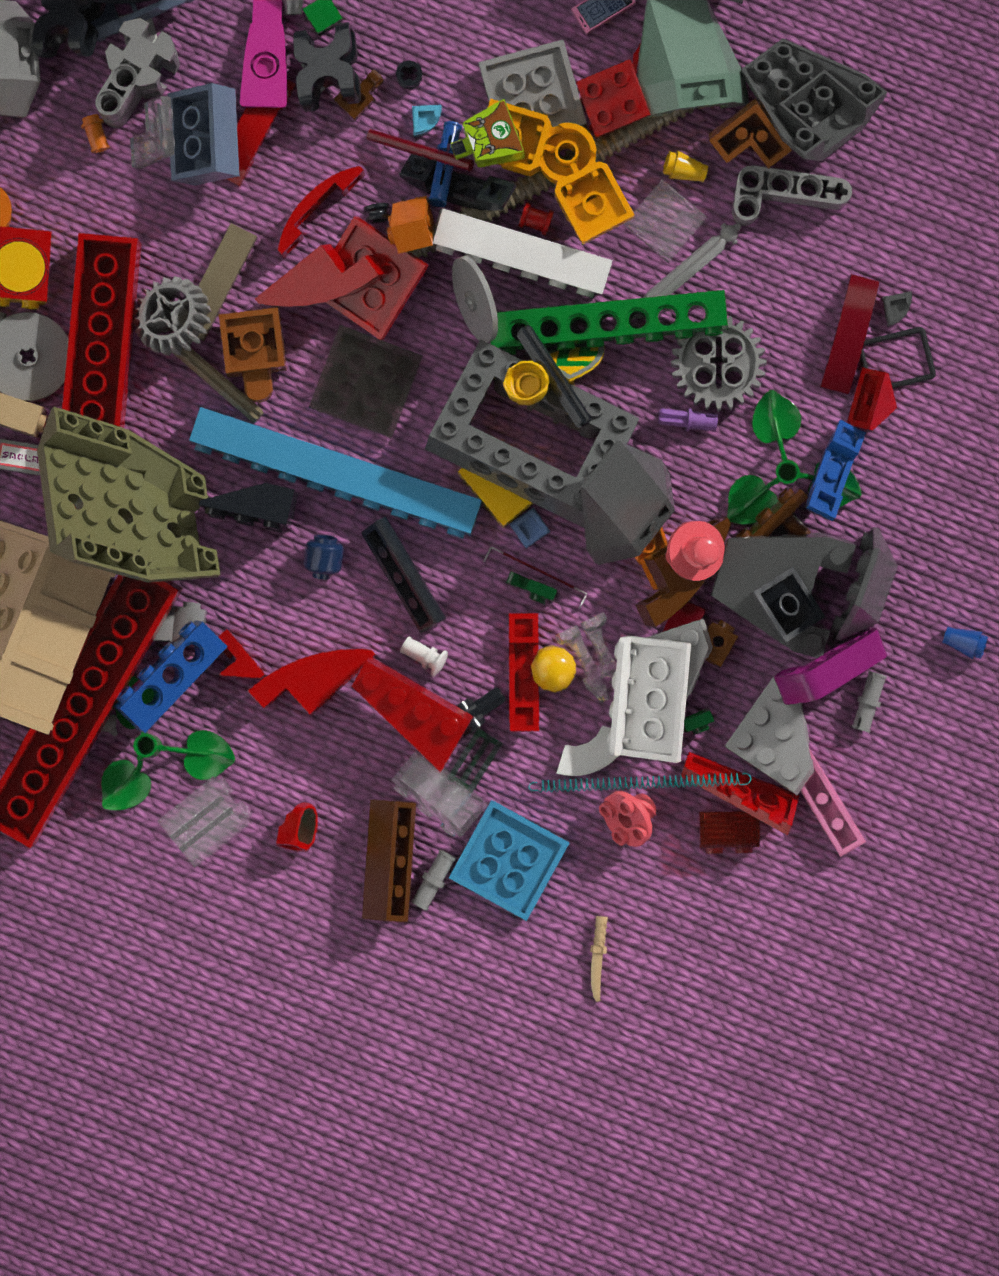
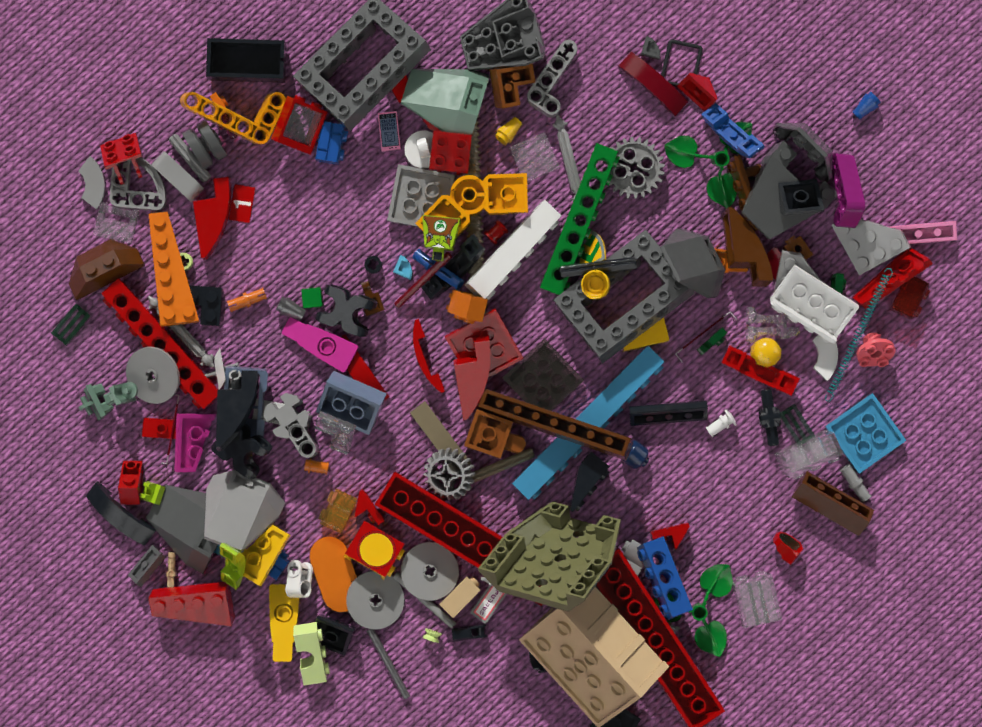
camera: 65 degrees left, 0 degrees up
(49, 191) = (338, 510): none -> clear yellow brick
(76, 222) = (365, 503): none -> red slope
(308, 424) = (556, 424): none -> reddish brown brick
(312, 678) = (703, 495): red slope -> none
(376, 213) = (446, 323): black bush -> none
(414, 711) = (754, 445): red wedge -> none
(474, 299) = (529, 291): light grey piece -> none
(529, 528) = (675, 325): medium blue tile -> none
(597, 55) = (419, 149): none -> white tile
(598, 950) = (941, 407): tan piece -> none
(688, 419) = (658, 201): medium lavender axle -> none
(695, 550) = (740, 235): coral plate -> none
(869, 701) = (874, 178): light grey pin -> none

